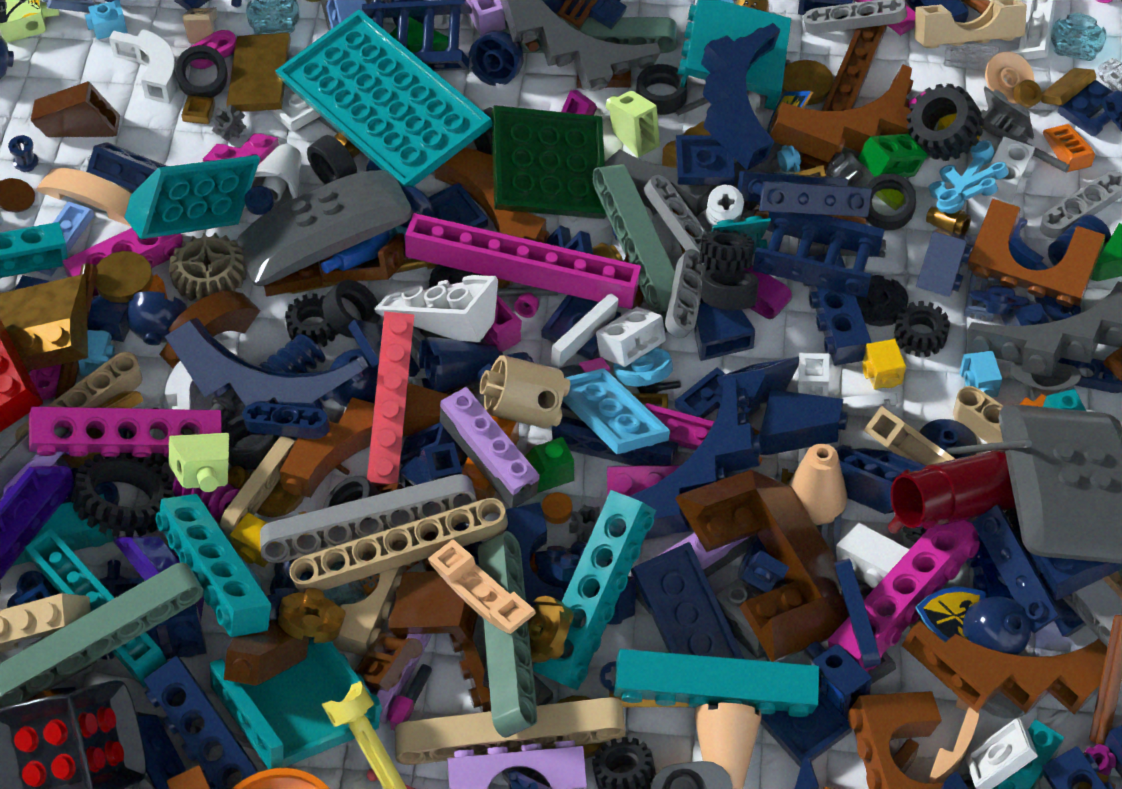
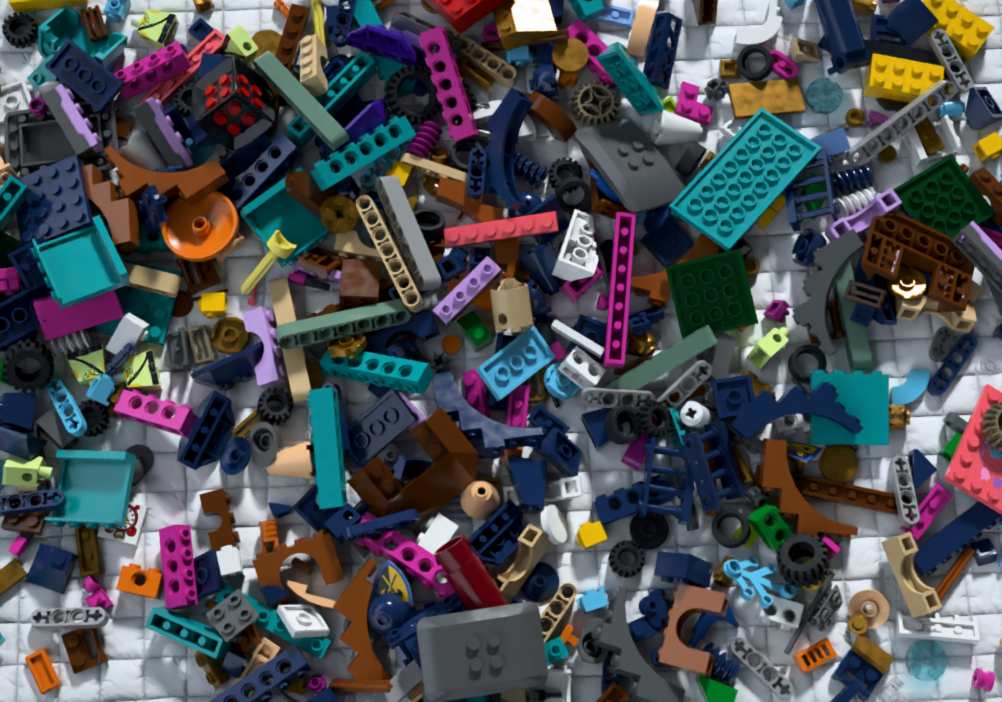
camera: 75 degrees right, 20 degrees up
(200, 460) = (435, 132): yellowish green torso -> none
(259, 200) = (646, 121): dark blue tile -> none
(479, 590) = (359, 303): light nougat slope -> none
(789, 159) = (750, 455): medium azure plate -> none
(989, 447) = (508, 598): dark grey axle -> none

